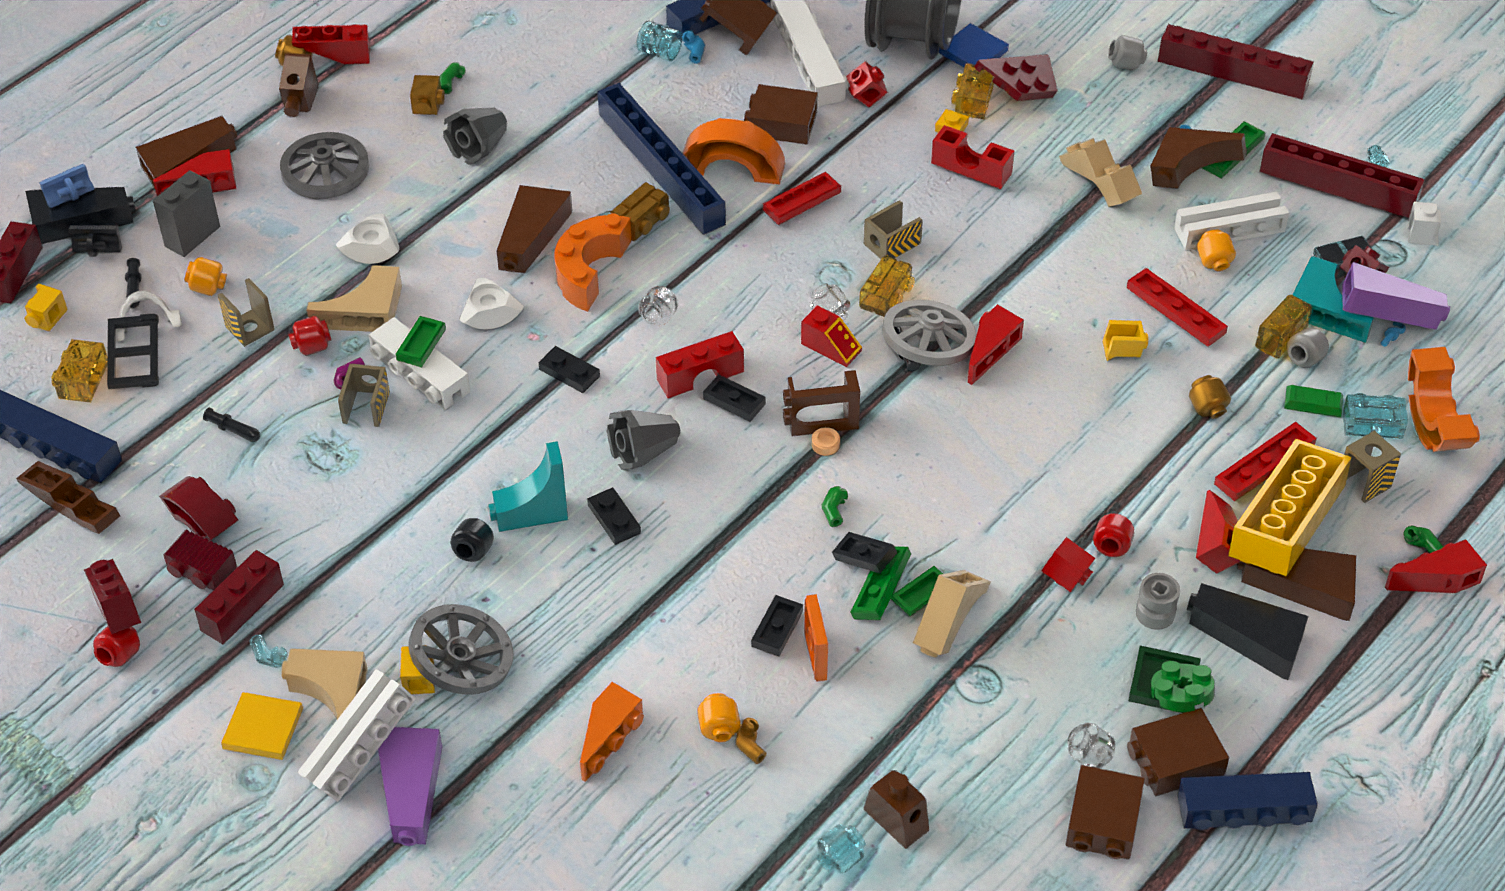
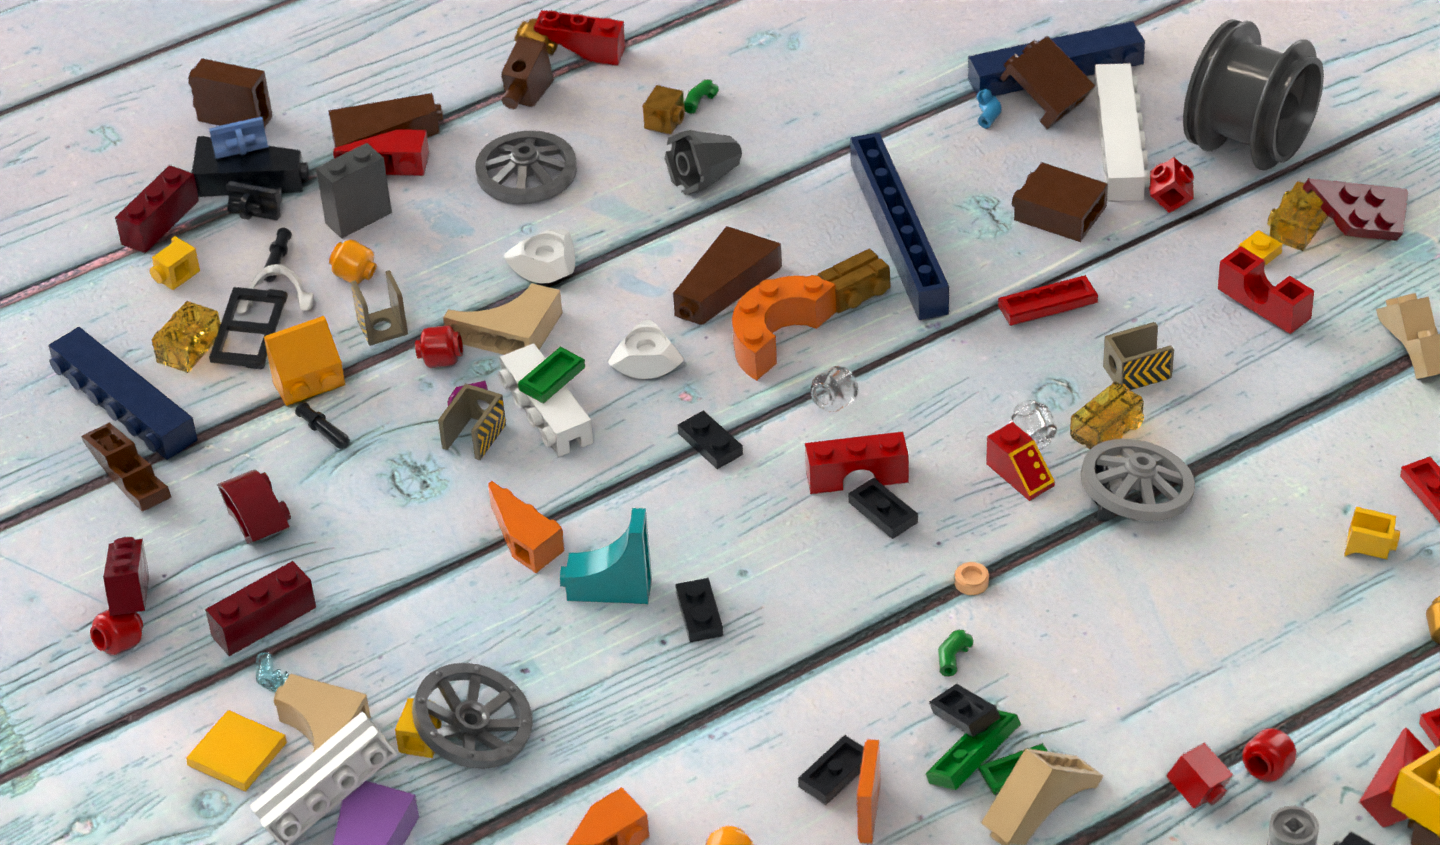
camera: 20 degrees right, 5 degrees down
(40, 148) = (229, 93): none -> reddish brown brick
(197, 372) = (304, 361): none -> light orange slope
(199, 560) = (233, 559): dark red brick -> none
(445, 481) = (528, 534): none -> orange slope
(472, 539) = (530, 601): black head -> none
(640, 436) = (759, 527): dark grey cone -> none
(659, 40) = (948, 94): clear light blue wheel -> none
(736, 142) = (990, 223): orange brick -> none
(847, 394) = (977, 523): reddish brown panel -> none
(973, 45) = (1321, 161): blue tile -> none
(996, 335) = (1213, 501): red slope -> none

